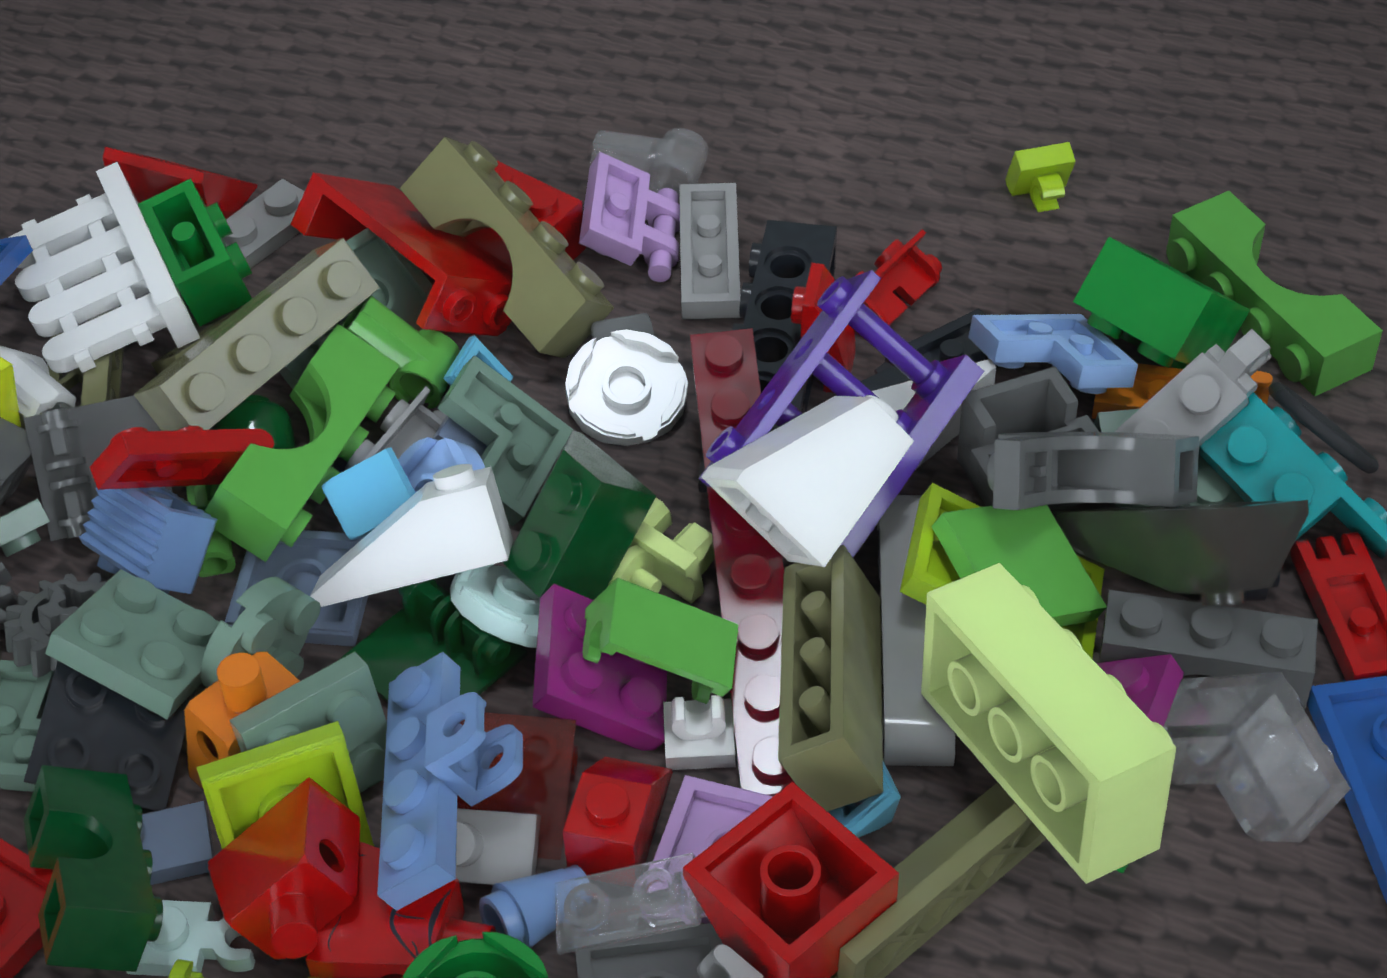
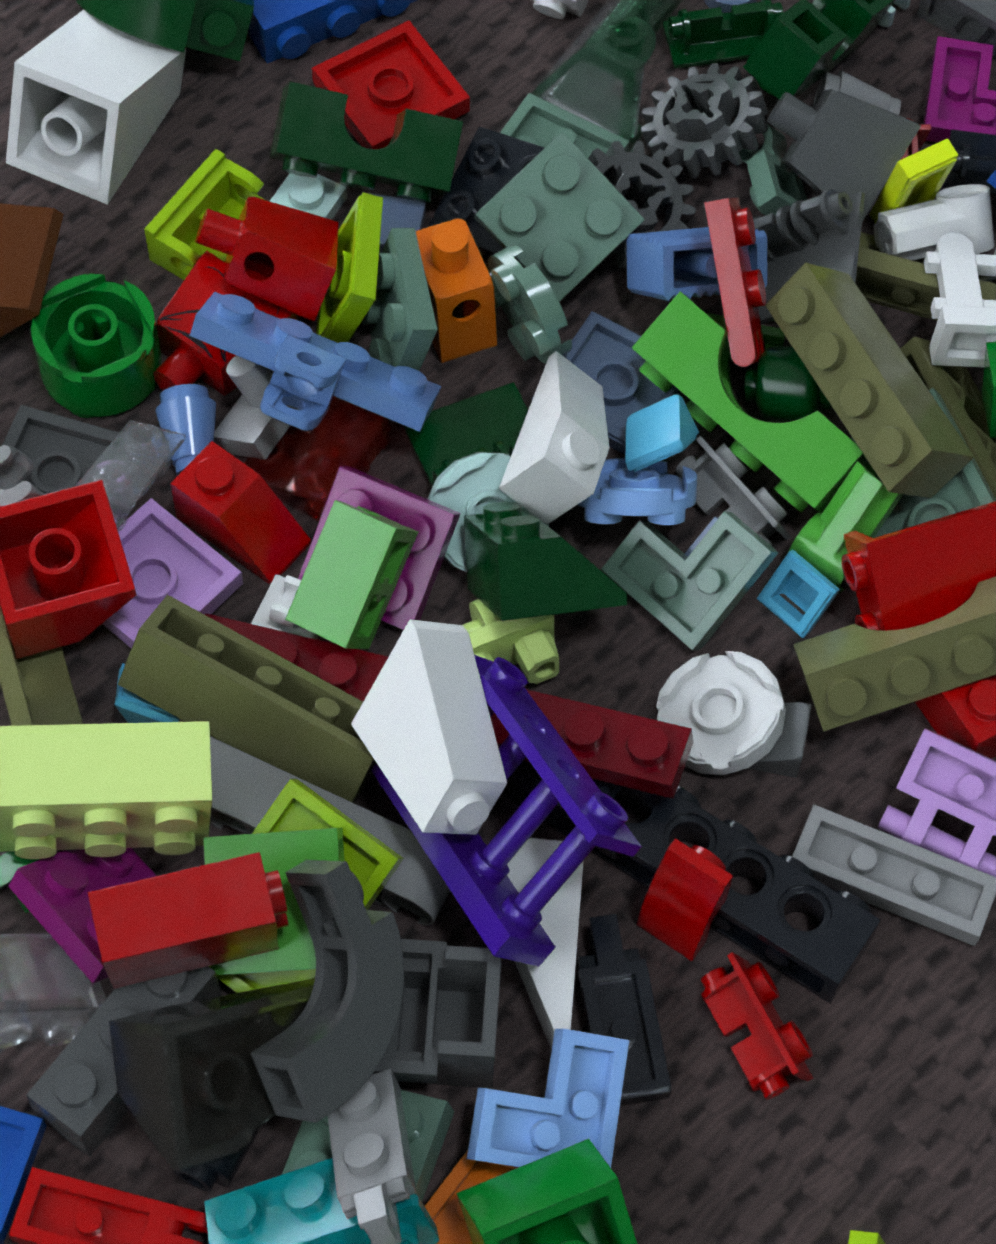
camera: 110 degrees right, 15 degrees up
(1114, 555) = (188, 919): none -> red brick

